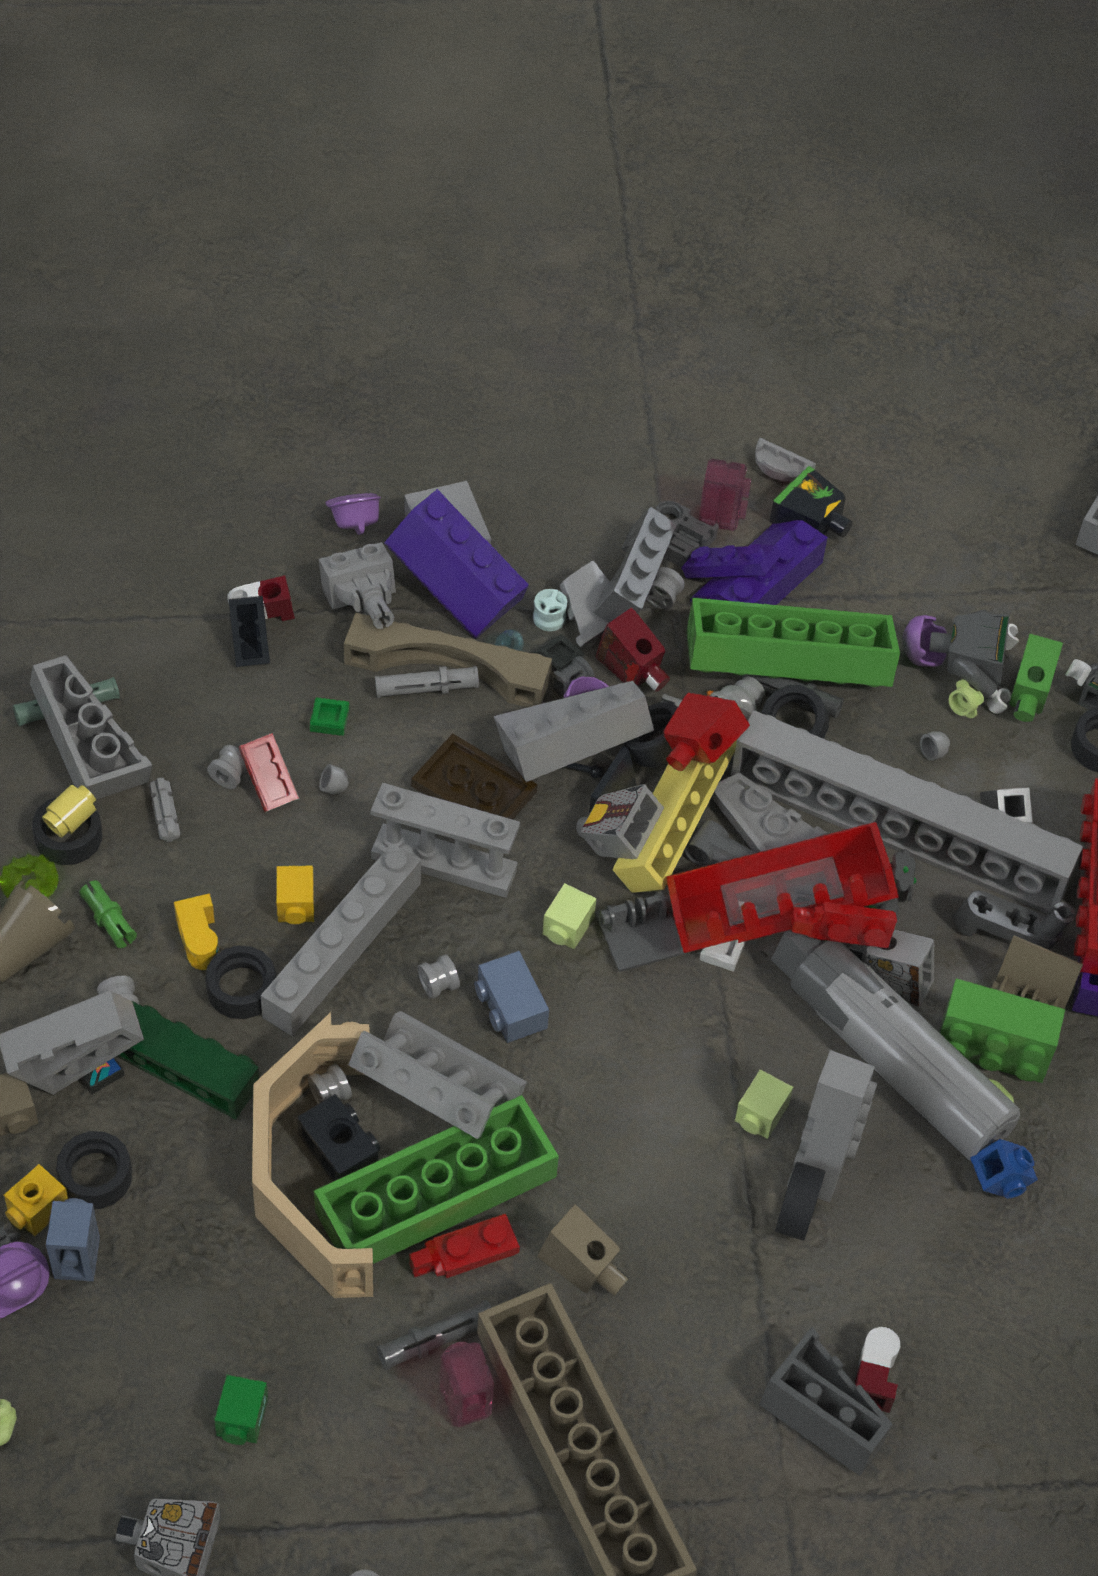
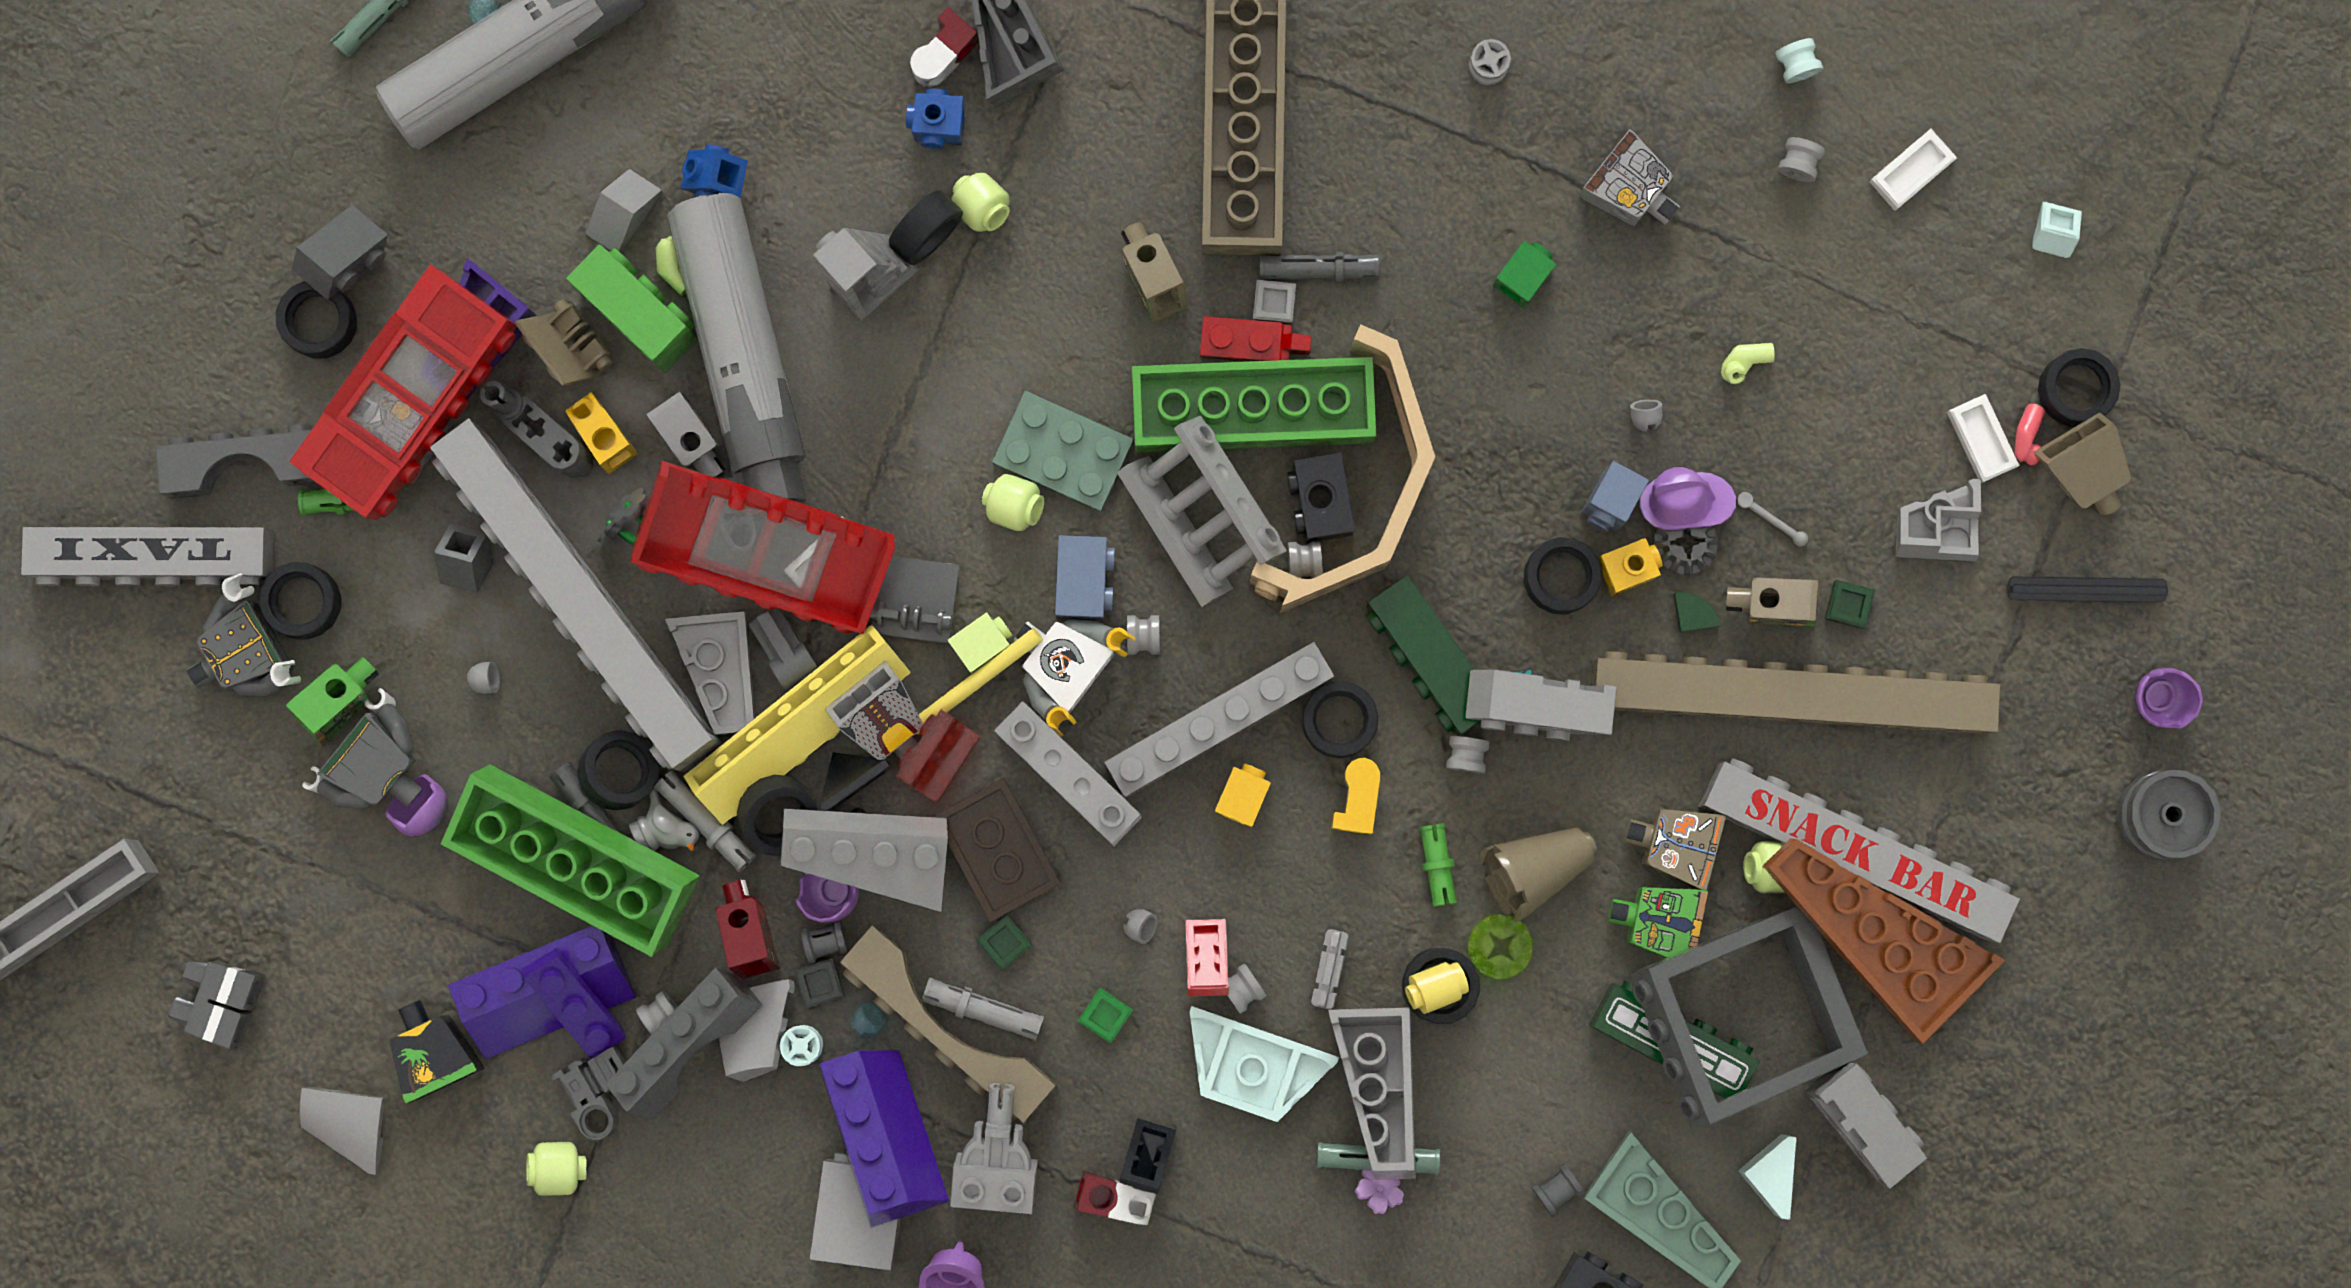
camera: 150 degrees left, 30 degrees up
(79, 1347) = (1646, 413): none -> light grey hinge
(194, 722) = (1253, 1066): none -> light aqua wing
(433, 731) = (1004, 942): none -> dark green tile
(461, 1289) = (1274, 301): none -> light grey tile
(466, 1383) = (1321, 194): clear pink brick -> none
(490, 922) = (1067, 665): none -> torso
(556, 825) = (937, 755): none -> clear red bracket
(564, 876) = (983, 674): none -> light yellow bar
(583, 1090) = (1063, 451): none -> sand green plate
(601, 1028) = (1013, 502): none -> yellowish green head
(680, 475) = (555, 1168): none -> yellowish green head
(703, 729) = (742, 768): red torso -> none
(723, 494) = (527, 1104): clear pink brick -> none
(763, 1104) = (901, 349): yellowish green brick -> none
(767, 1252) = (982, 202): none -> yellowish green head
(779, 462) = (427, 1139): light grey plate -> none
(844, 453) = (345, 1123): none -> light grey slope
(845, 924) = (730, 466): red hinge -> none
(845, 1301) = (949, 121): none -> blue brick
(965, 699) = (419, 717): yellowish green plate -> none
(966, 942) = (600, 433): none -> yellow leg
(975, 482) = (211, 1019): none -> dark grey hips
(1060, 1120) = (621, 210): none -> light grey slope

